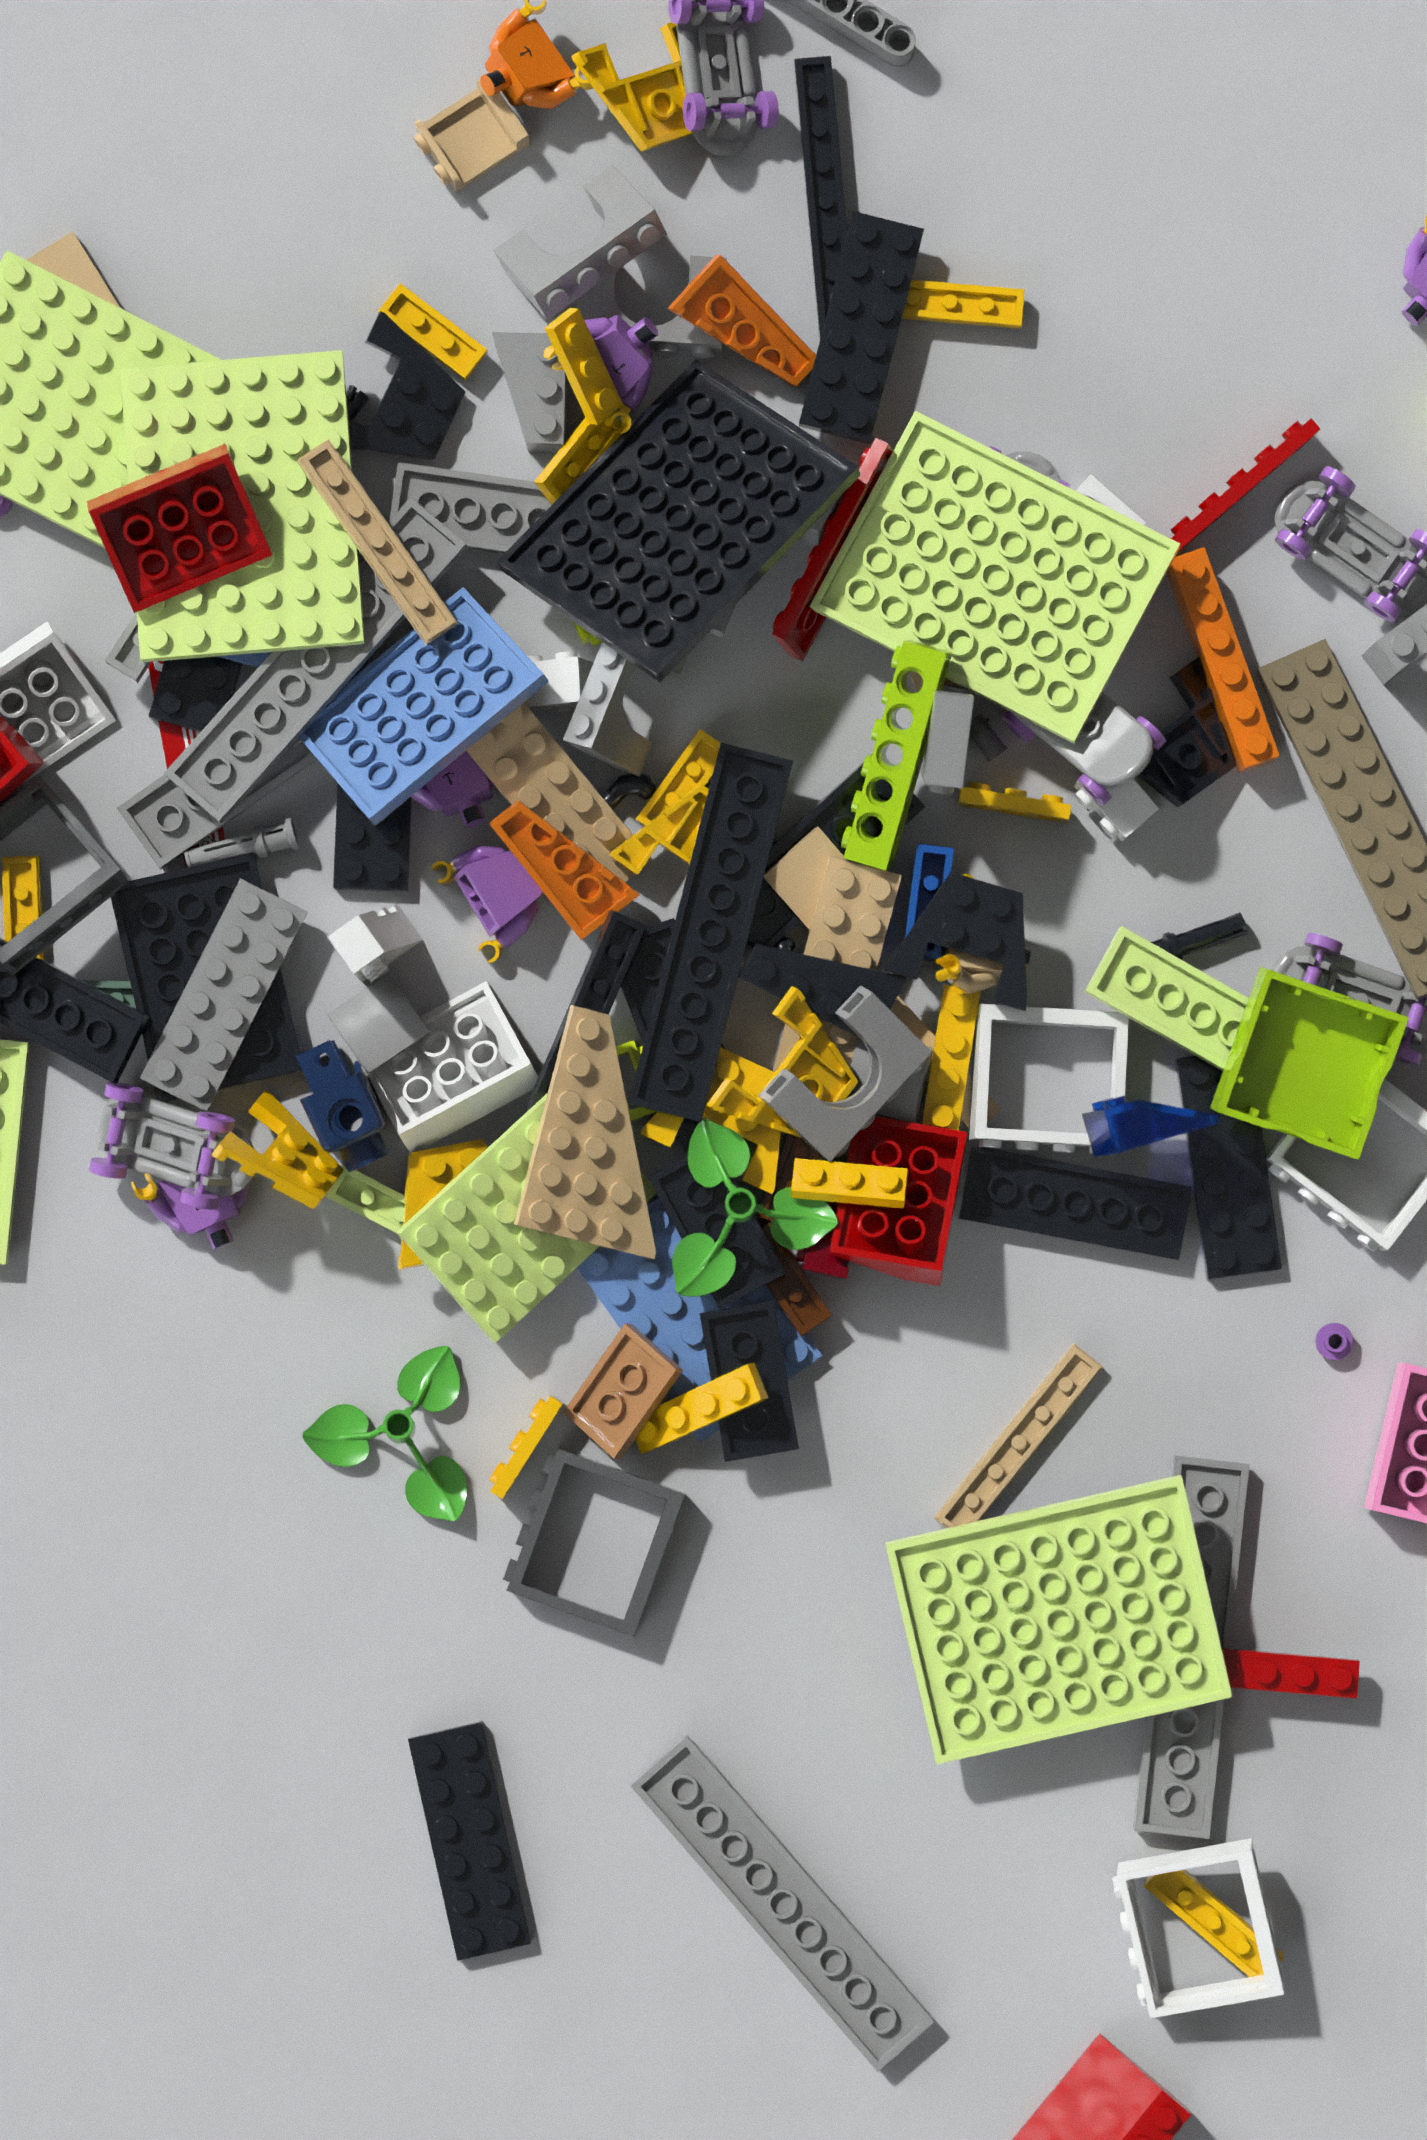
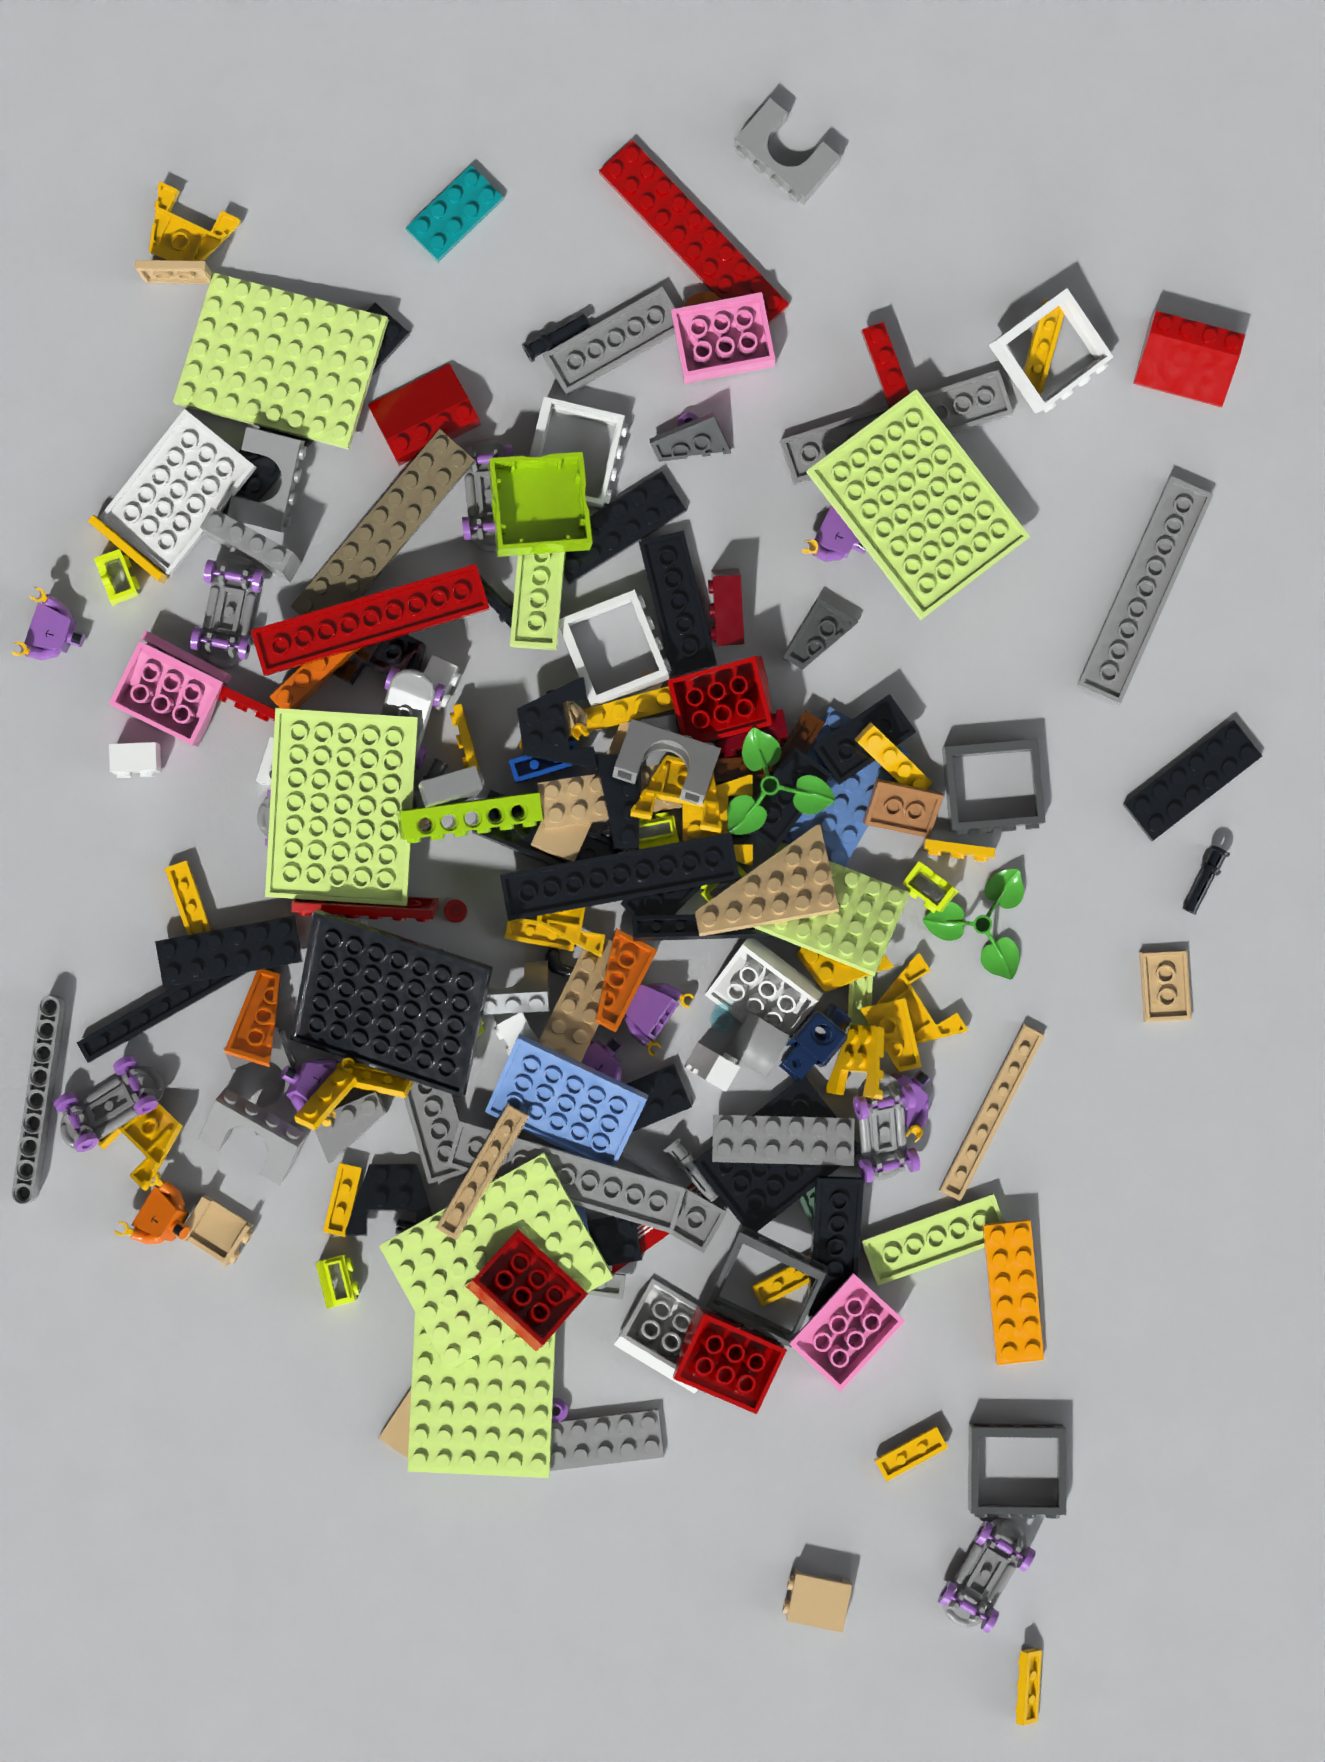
camera: 110 degrees left, 0 degrees up
(124, 1318) = (991, 1112): none -> tan tile
(188, 1657) = (1165, 986): none -> tan tile
(303, 1231) = (898, 1032): none -> yellow wing
(321, 272) = (337, 1280): none -> neon yellow window
(323, 1256) = (922, 1023): none -> yellow wing
(327, 1803) = (1210, 869): none -> black pin
(438, 976) = (721, 1012): none -> clear light blue plate
(489, 1377) = (929, 887): none -> neon yellow window
(751, 1019) = (657, 831): none -> neon yellow window
(772, 678) = (455, 911): none -> red tile
(849, 1183) = (727, 731): yellow plate -> none
(937, 1388) = (818, 633): none -> dark grey wing
(1020, 1439) = (826, 575): tan tile -> none
(1036, 1270) = (726, 607): none -> dark red wedge
(1064, 1470) = (833, 539): none -> medium lavender torso
(1123, 1125) = (624, 589): clear blue slope -> none
(1202, 316) = (135, 758): none -> white brick
(1249, 740) = (370, 619): none -> red plate
(1273, 402) = (167, 694): none -> bright pink slope
(1304, 463) = (179, 654): none -> bright pink plate
(1309, 1336) = (693, 438): none -> dark grey wing

